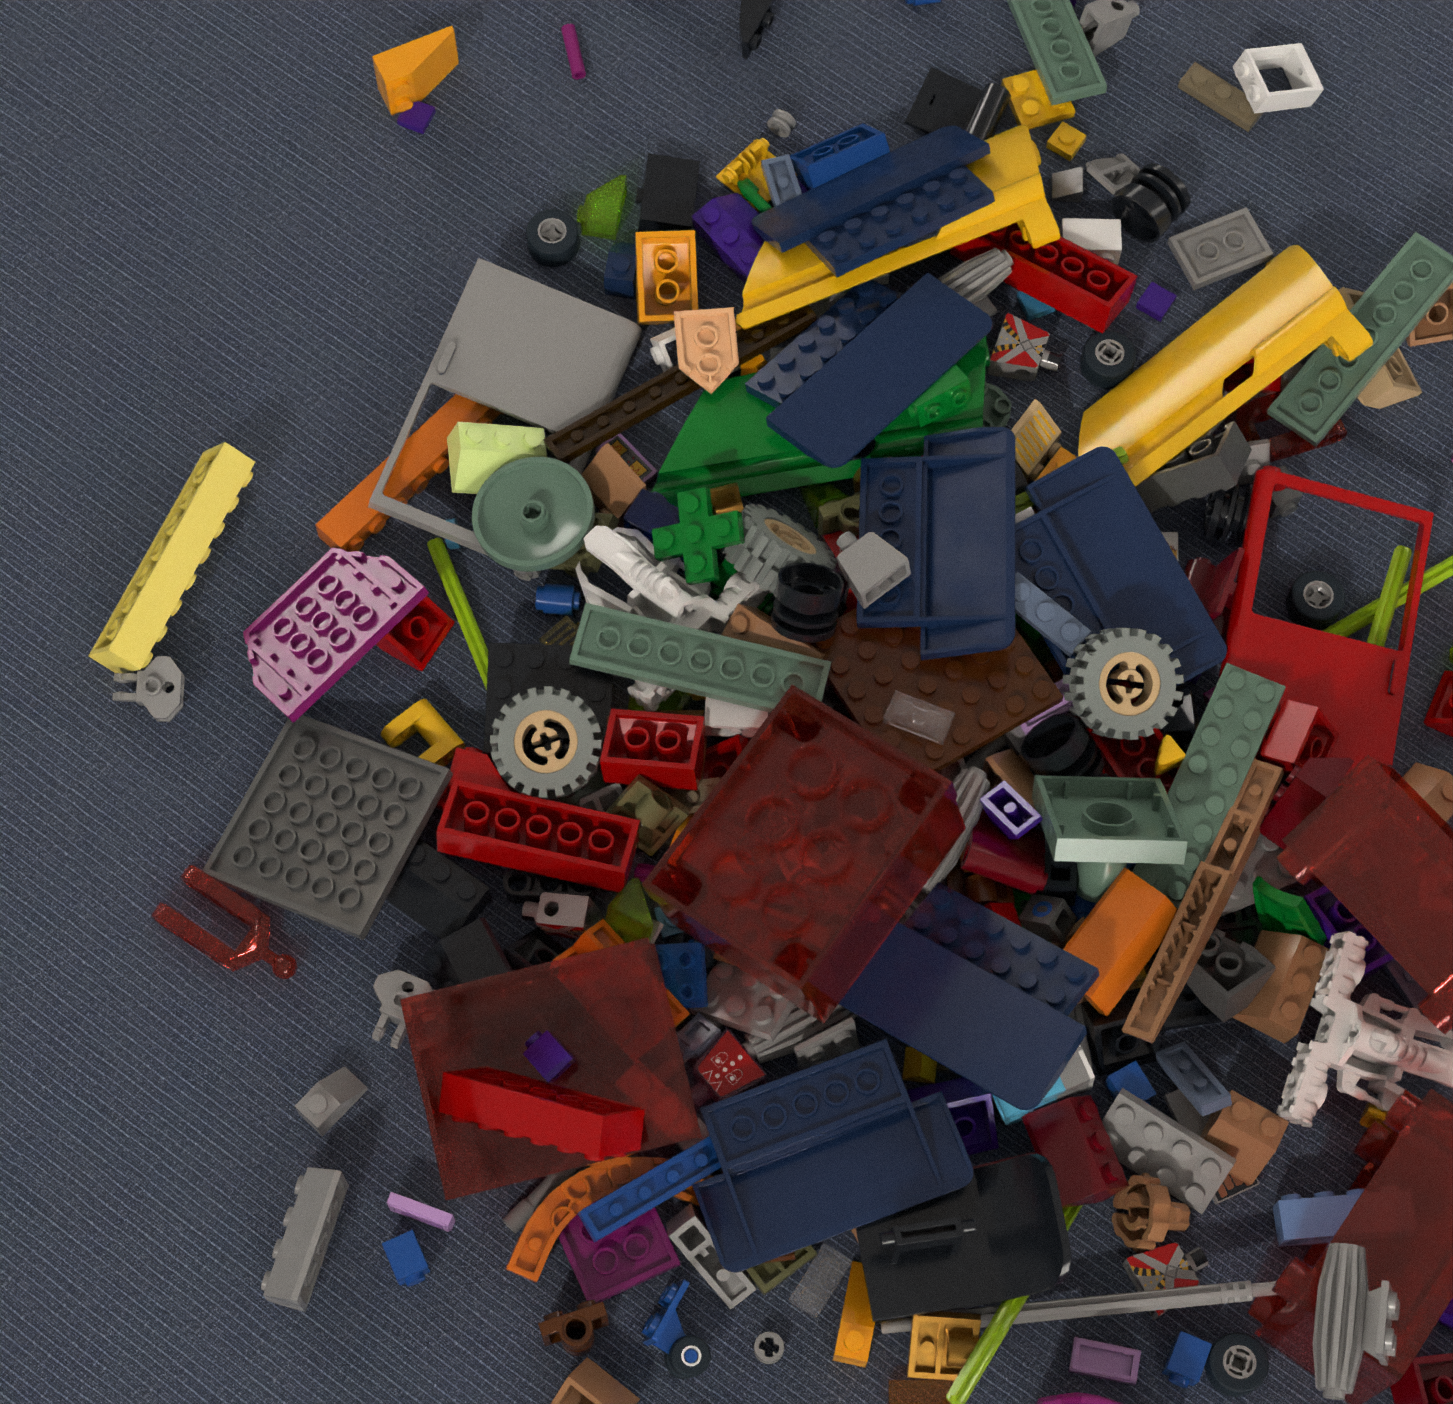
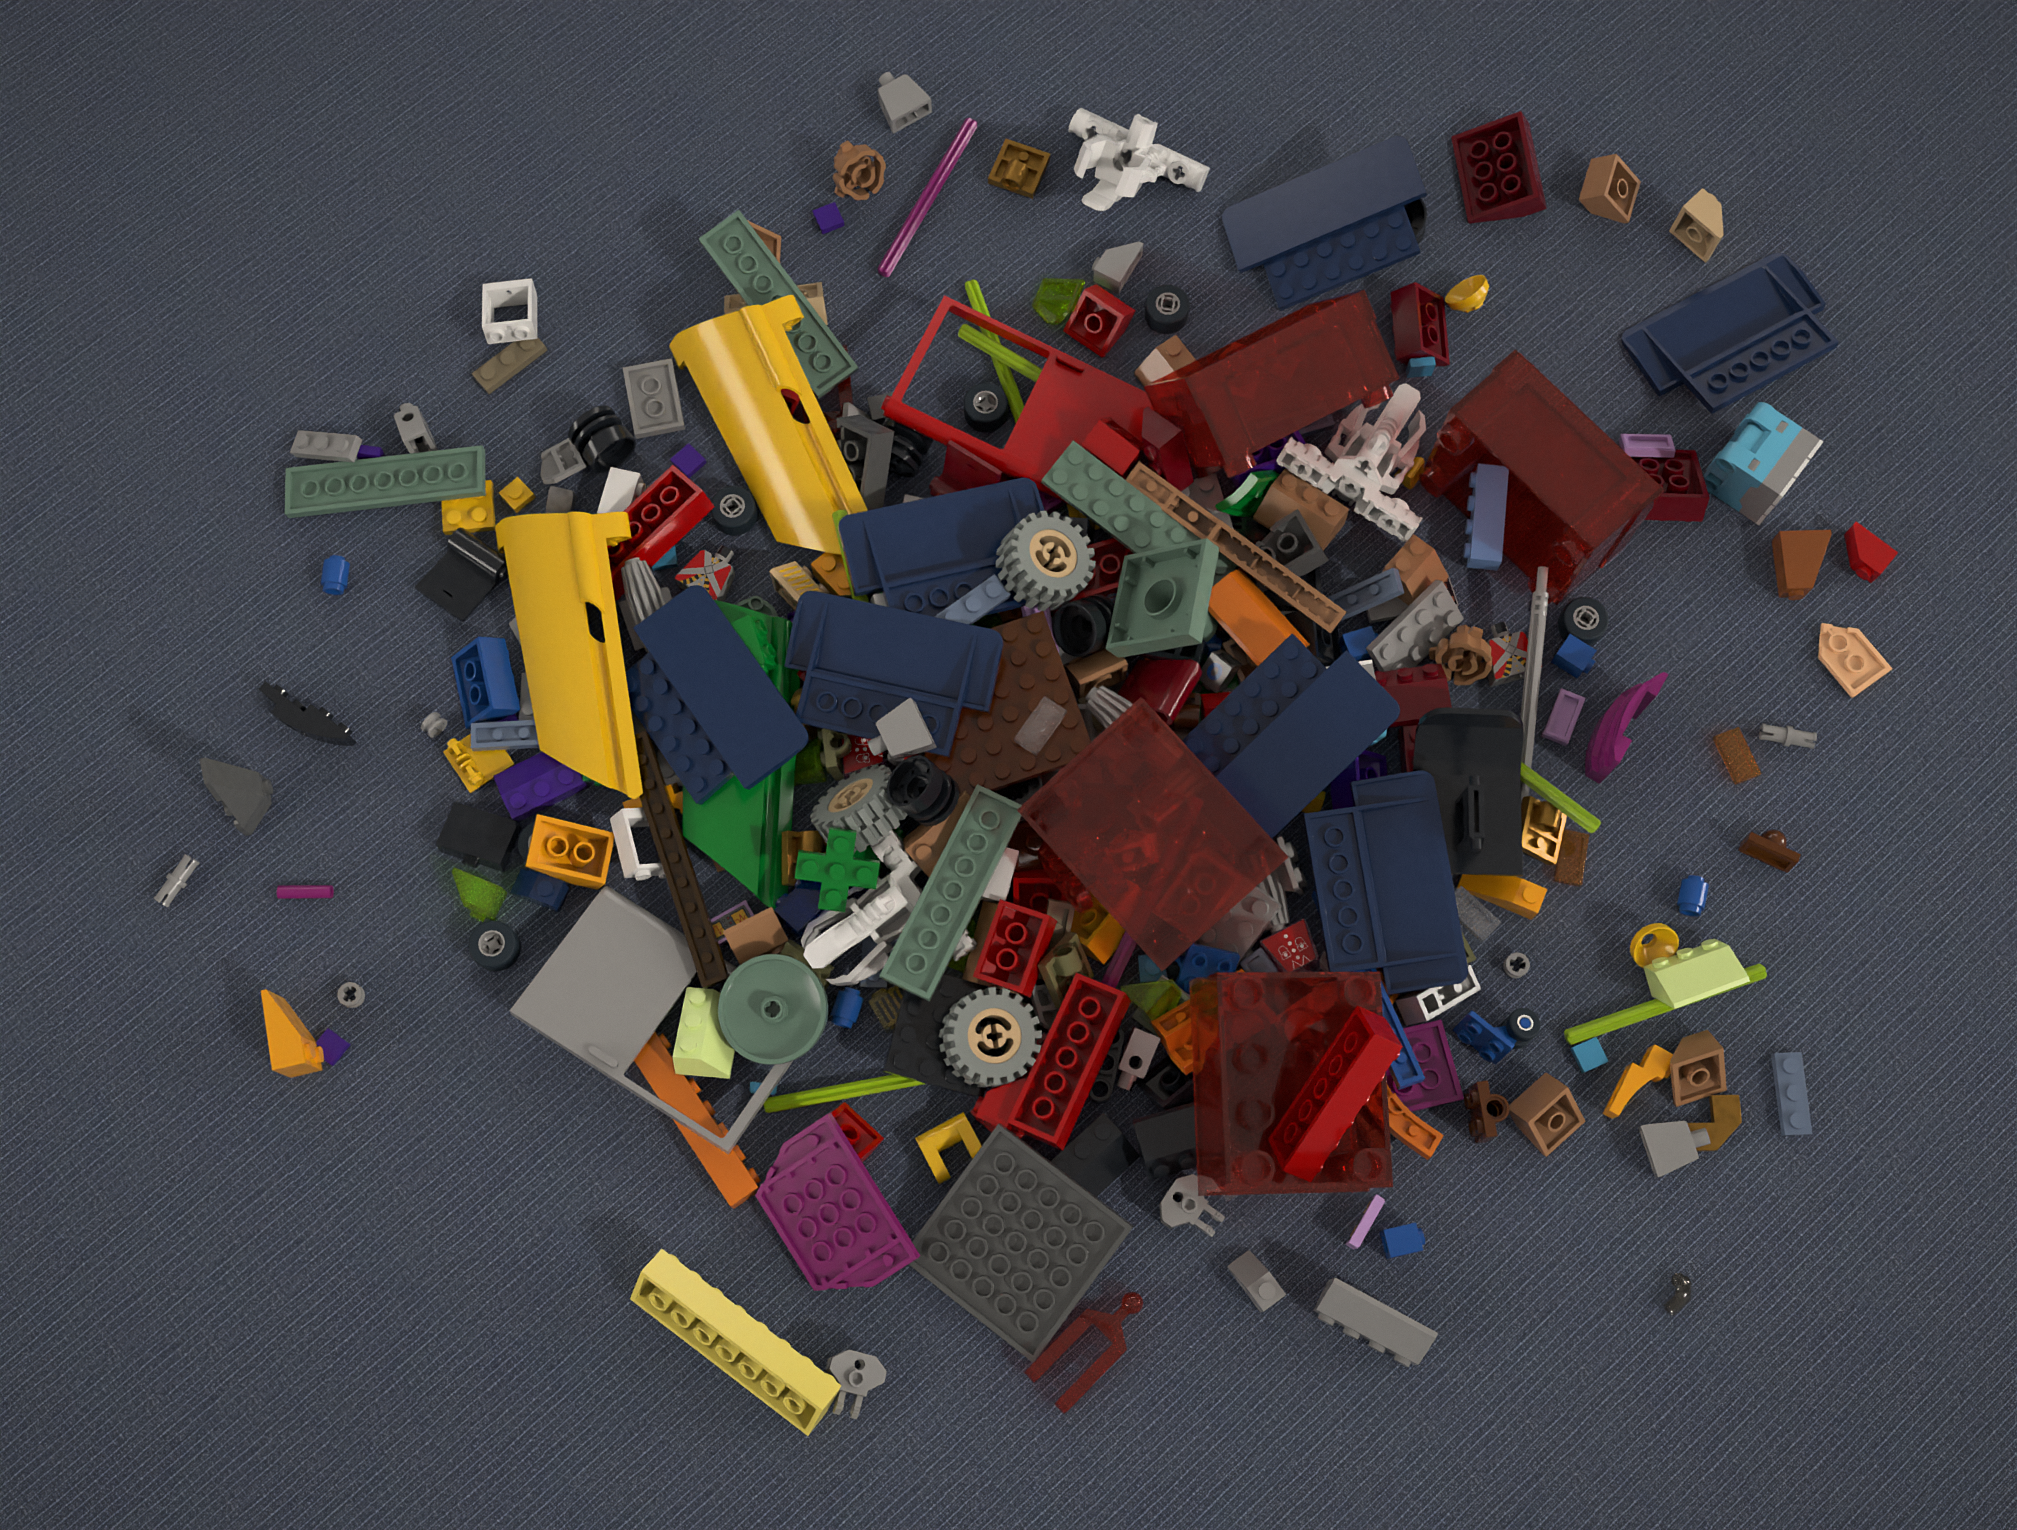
camera: 75 degrees left, 5 degrees up
(475, 127) = (342, 995): none -> light grey bush
(548, 1055) = (1282, 1081): dark purple slope -> none
(706, 345) = (652, 827): light nougat tile -> none
(750, 192) = (496, 765): green piece -> none
(883, 202) = (551, 651): dark blue slope -> none
(1009, 811) = (1136, 673): dark purple slope -> none
(1169, 756) = (1105, 545): yellow slope -> none
(1350, 1320) = (1624, 509): light grey plate -> none

